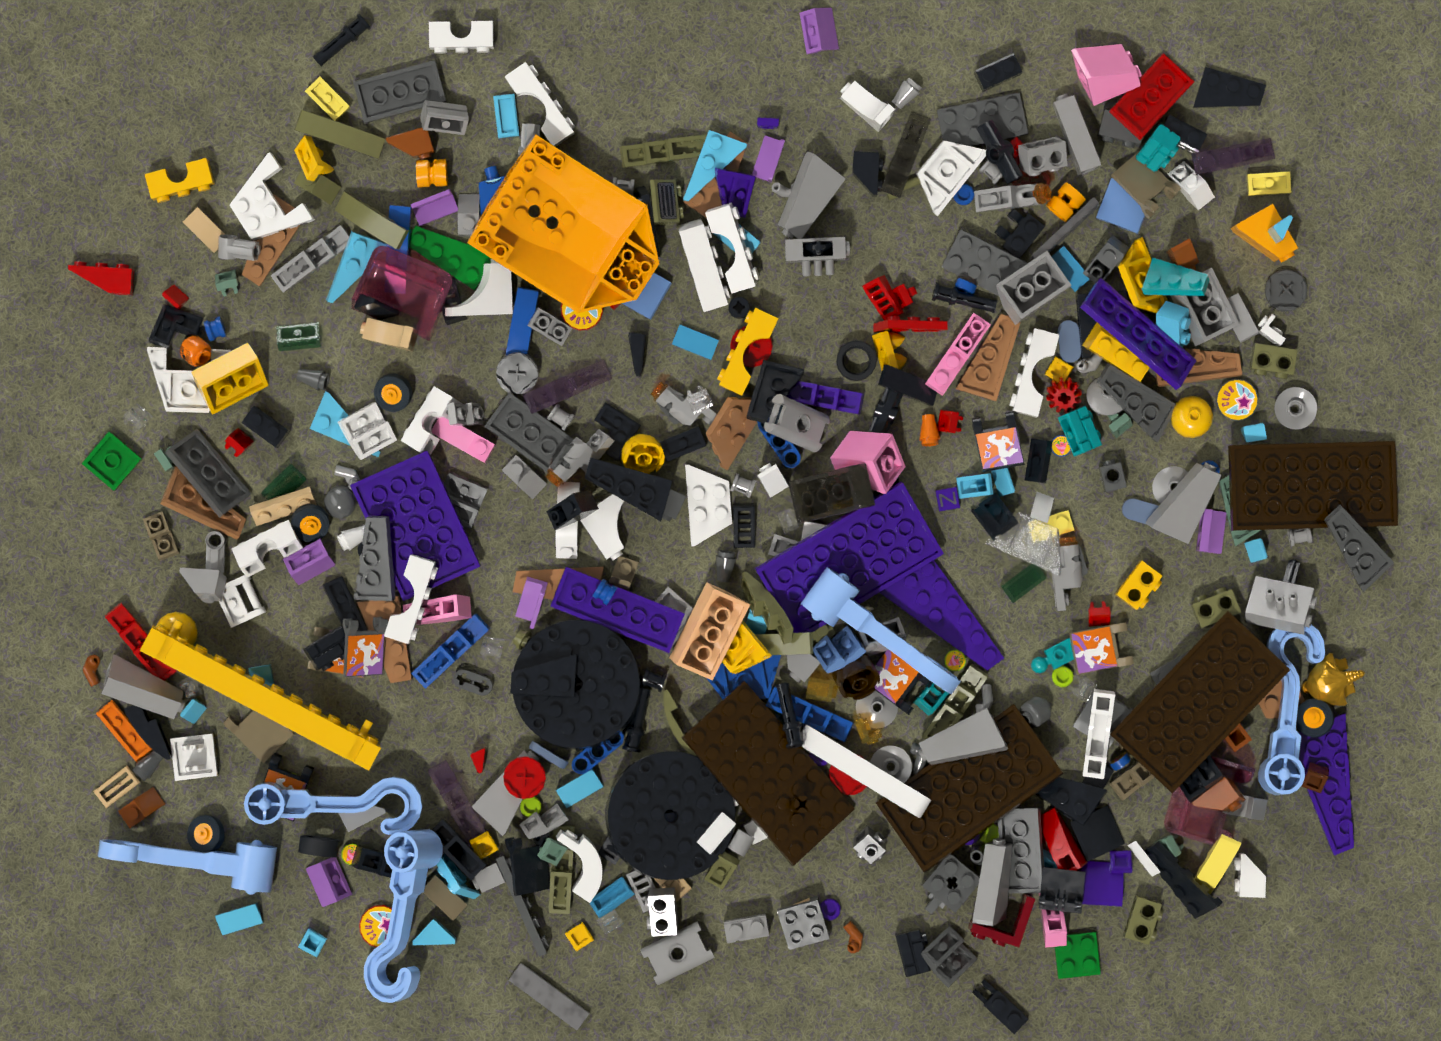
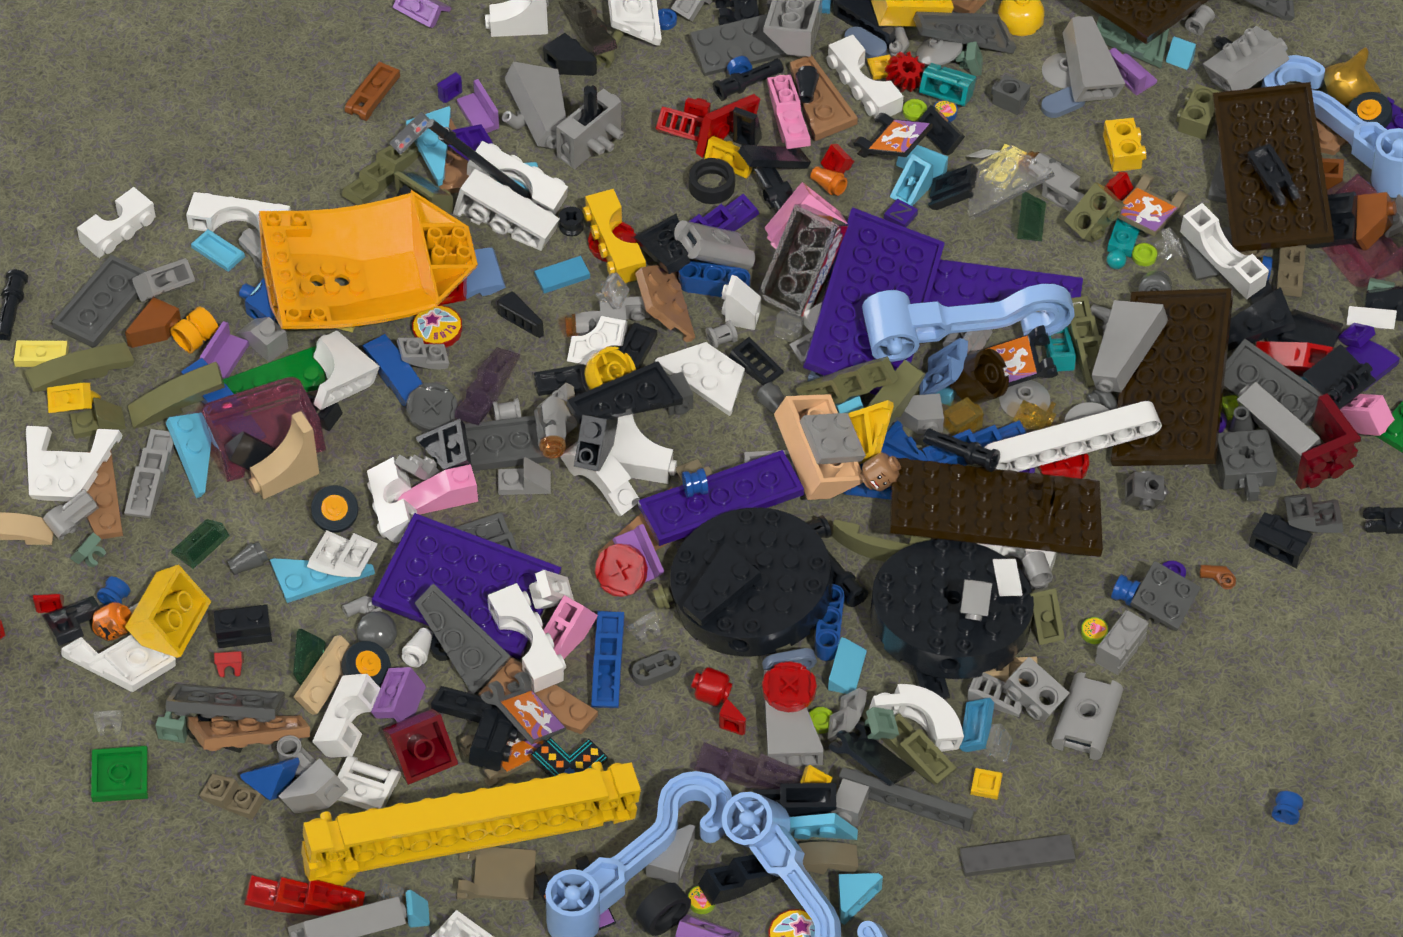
camera: 45 degrees left, 35 degrees down
(189, 546) = (272, 778): none -> blue slope
(291, 606) = (420, 746): none -> dark red slope
(363, 704) = (555, 760): none -> black tile
(455, 581) = (549, 589): none -> white slope
(488, 728) = (711, 686): none -> red head
(495, 416) = (447, 445): none -> wing
(513, 601) = (621, 570): none -> tile
(667, 422) = (607, 333): none -> white tile
(676, 835) = (975, 599): none -> light grey slope
(687, 207) = (449, 137): none -> black bar
(701, 145) = (410, 133): none -> sticker
(715, 640) = (832, 438): none -> light grey plate
(719, 75) = (372, 90): none -> dark orange plate
(723, 687) = (880, 471): none -> medium nougat head
(743, 901) = (1094, 630): none -> tile
(787, 896) = (1125, 589): none -> blue wheel
(916, 344) = (746, 127): none -> black slope
(988, 347) = (807, 82): none -> black cone
(1043, 426) = (914, 109): none -> lime tile
(1056, 624) = (1091, 208): none -> olive brick
(1187, 712) = (1272, 172): none -> black hinge

